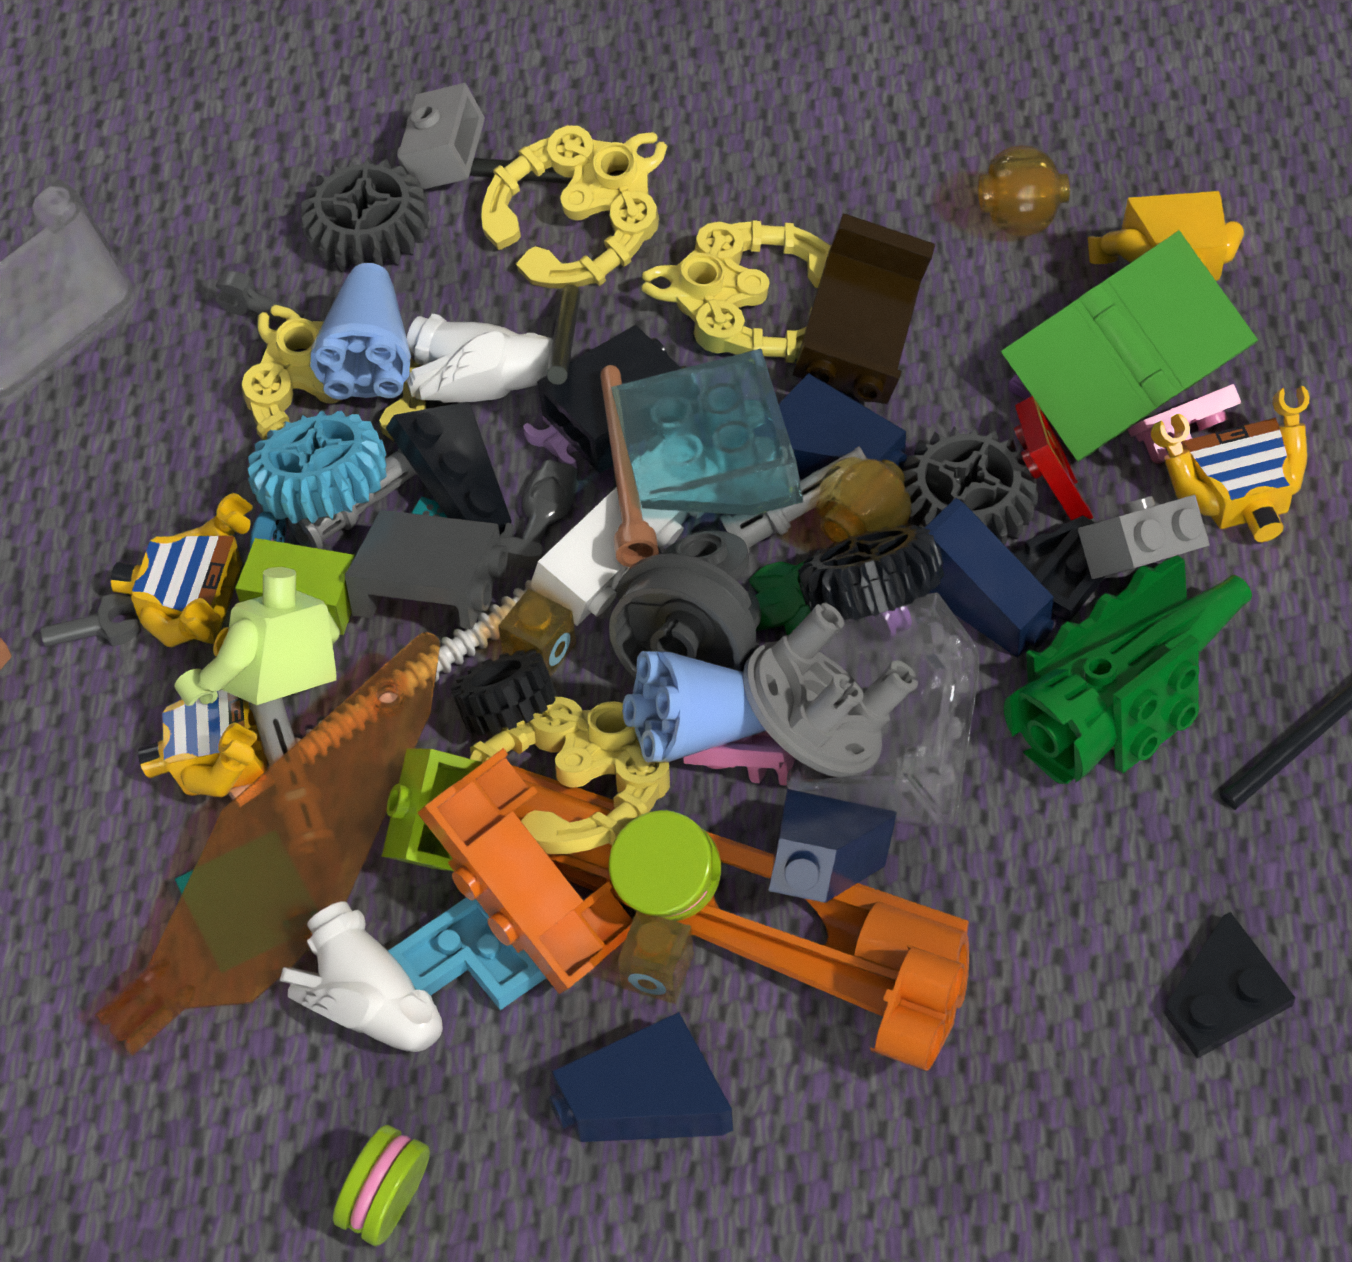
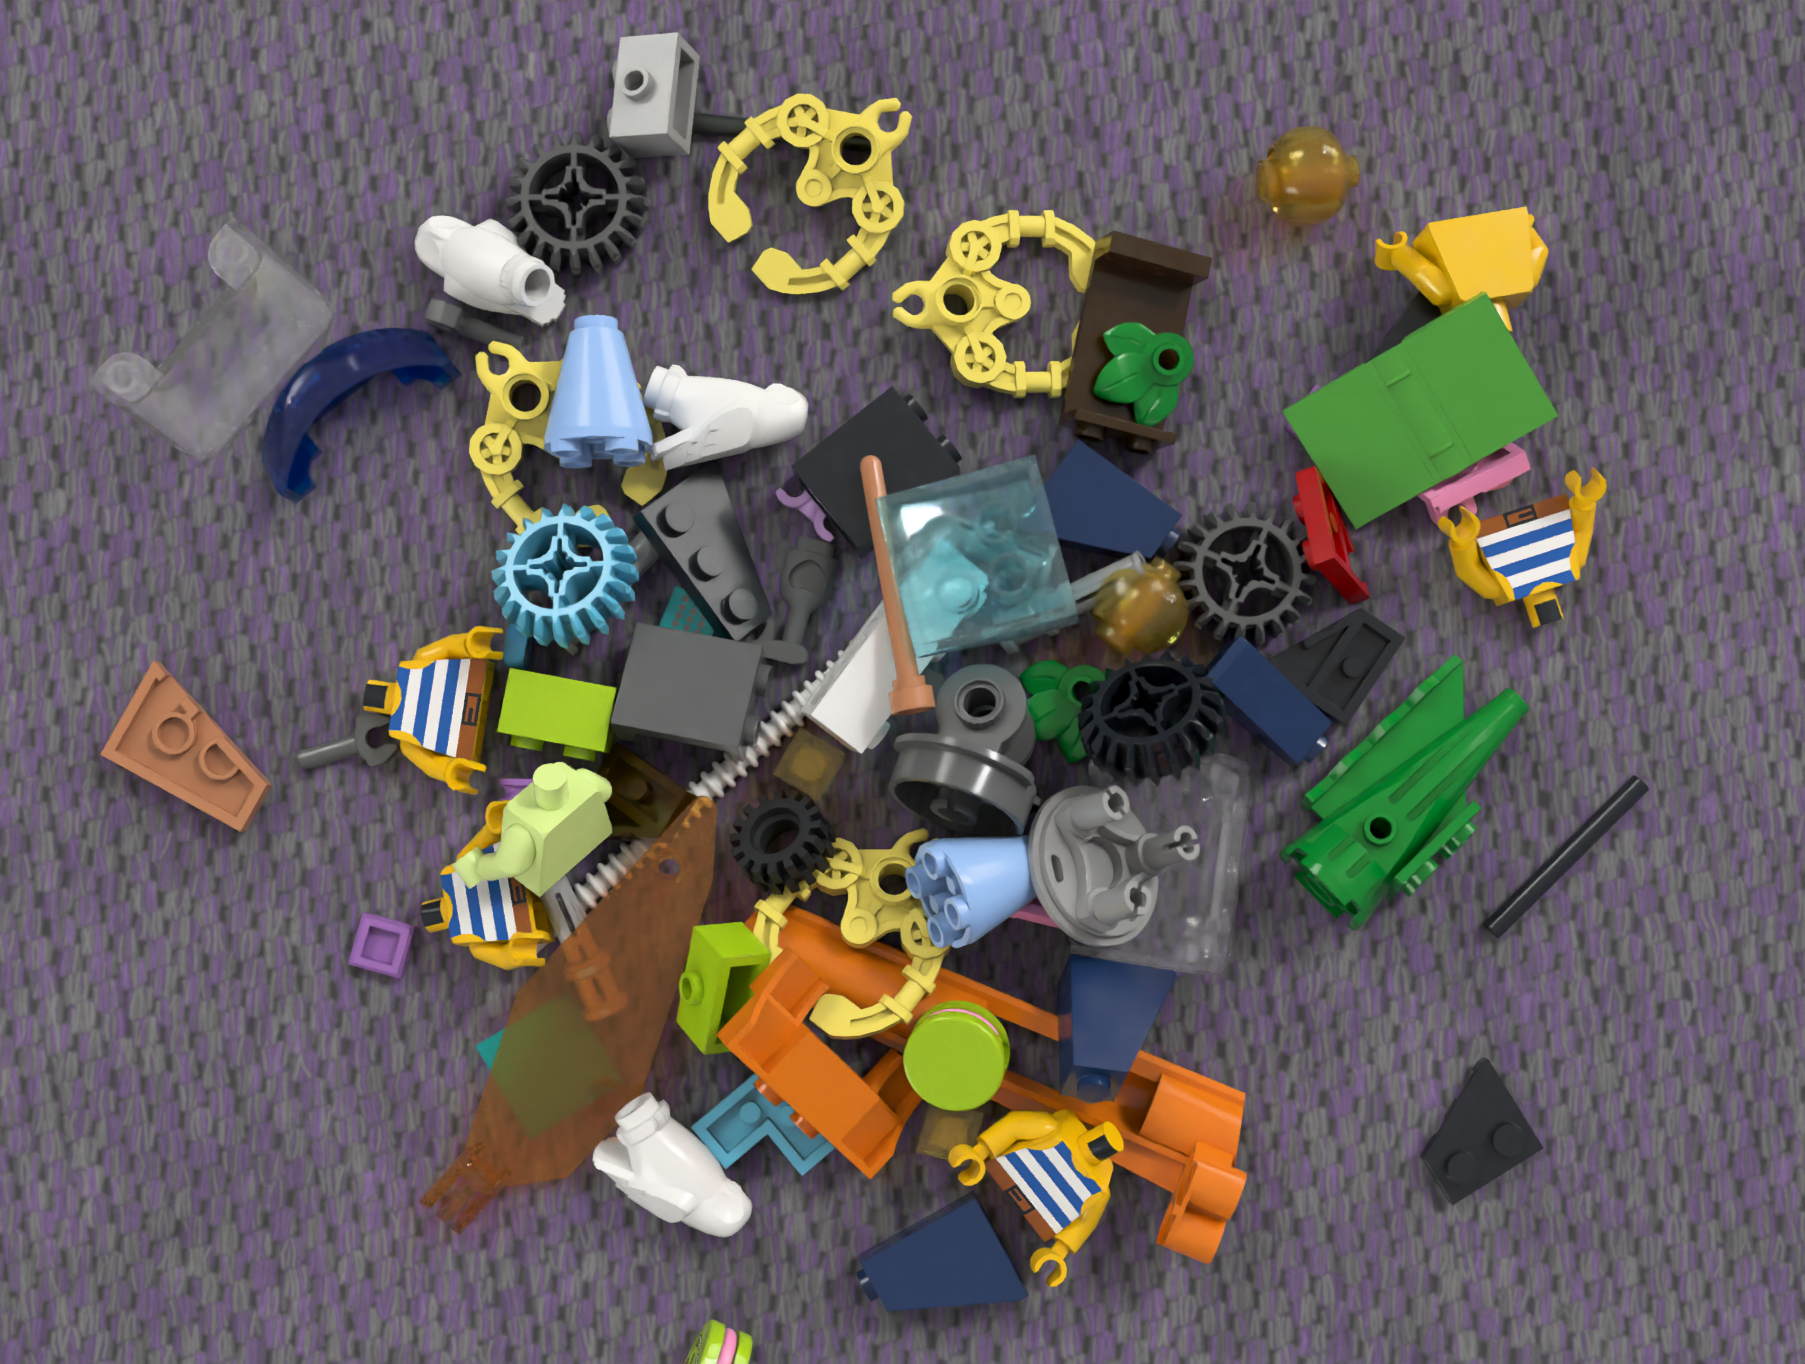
camera: 10 degrees left, 30 degrees up
(95, 793) = (382, 945): none -> medium lavender tile
(128, 342) = (331, 380): none -> clear blue windscreen
(283, 257) = (489, 268): none -> white animal
(358, 655) = (642, 796): none -> dark brown wing
(563, 335) = (814, 391): pearl dark grey bar -> none
(758, 988) = (1050, 1172): none -> torso
(868, 334) = (1136, 373): none -> green plate
(1143, 535) = (1425, 650): light grey brick -> none

